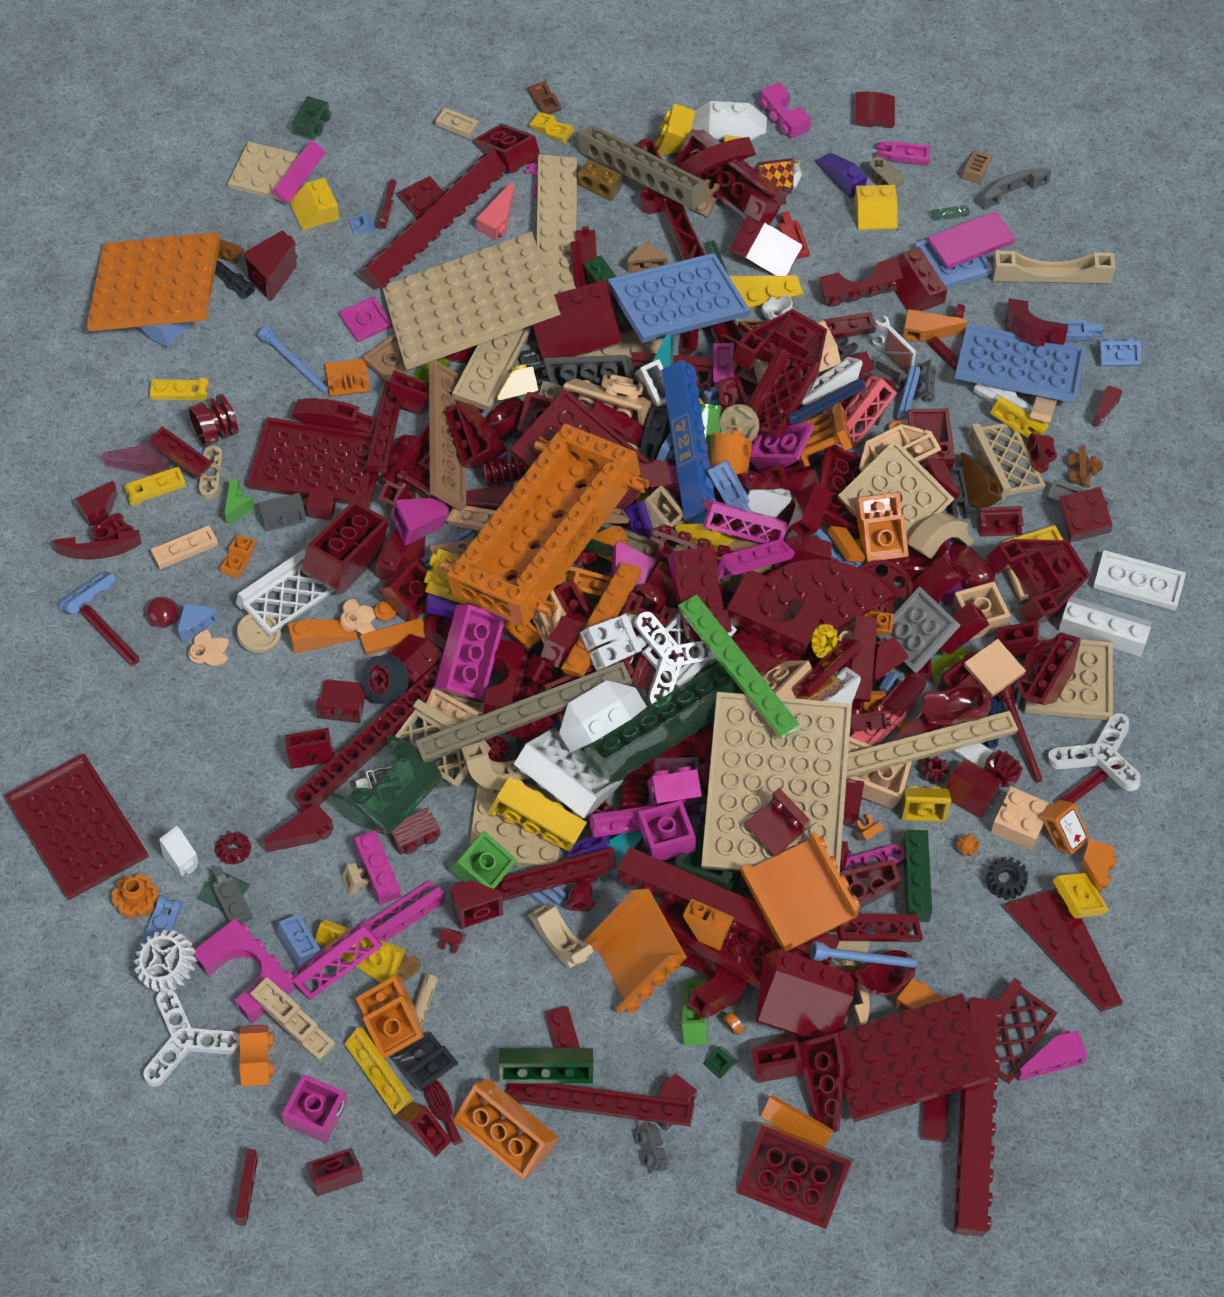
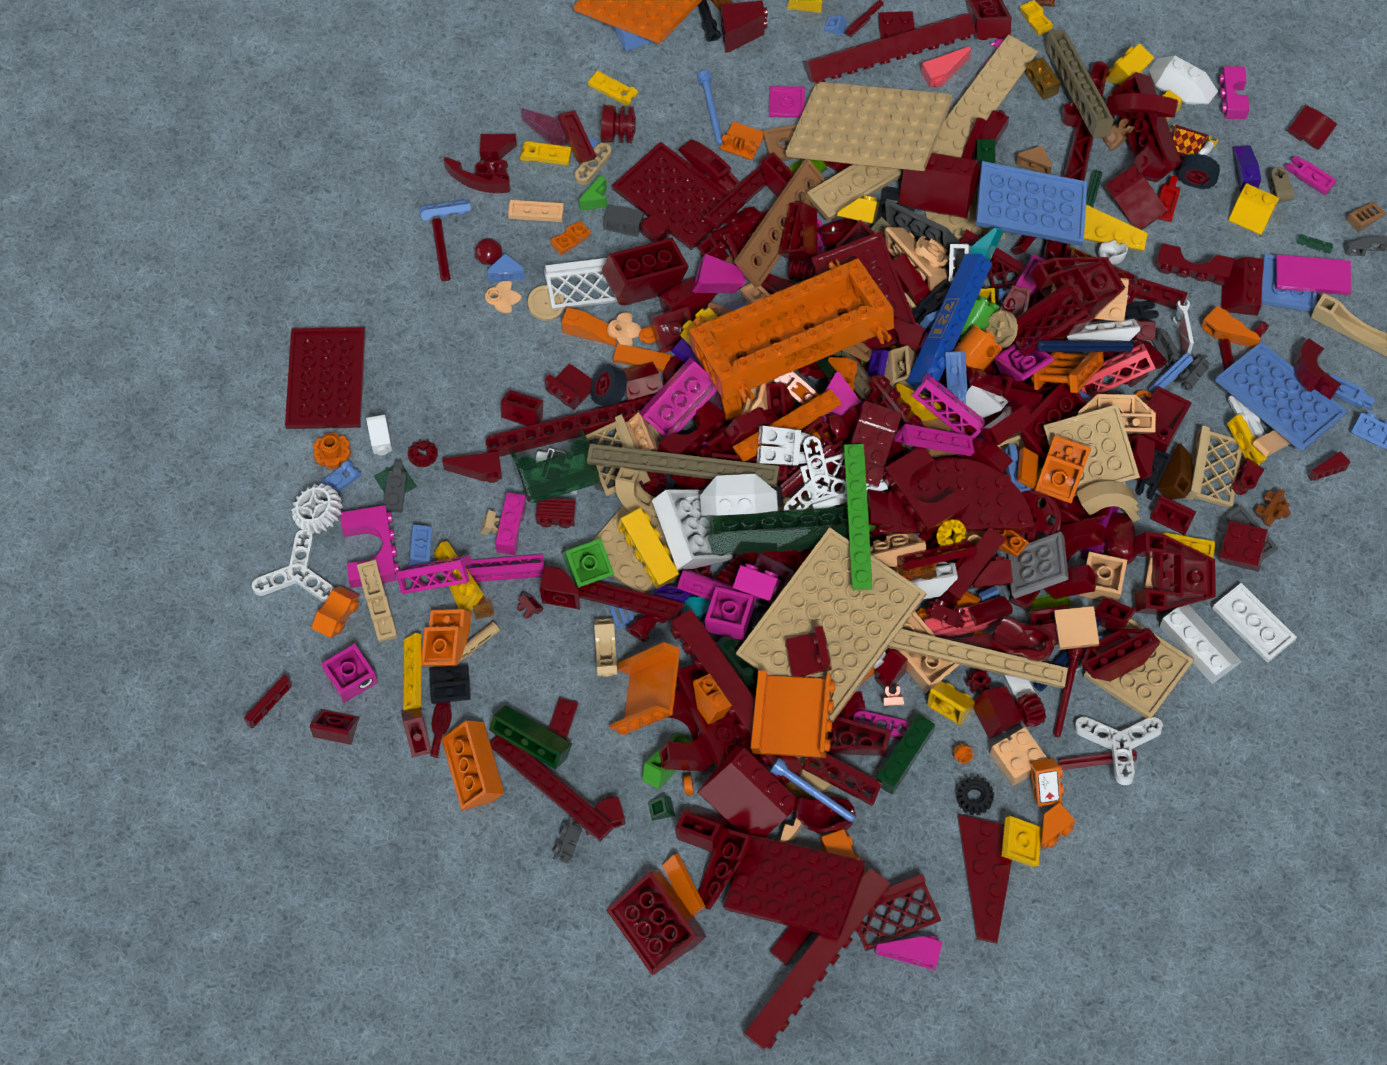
camera: 35 degrees right, 5 degrees up
(806, 195) = (1199, 171): none -> black wheel

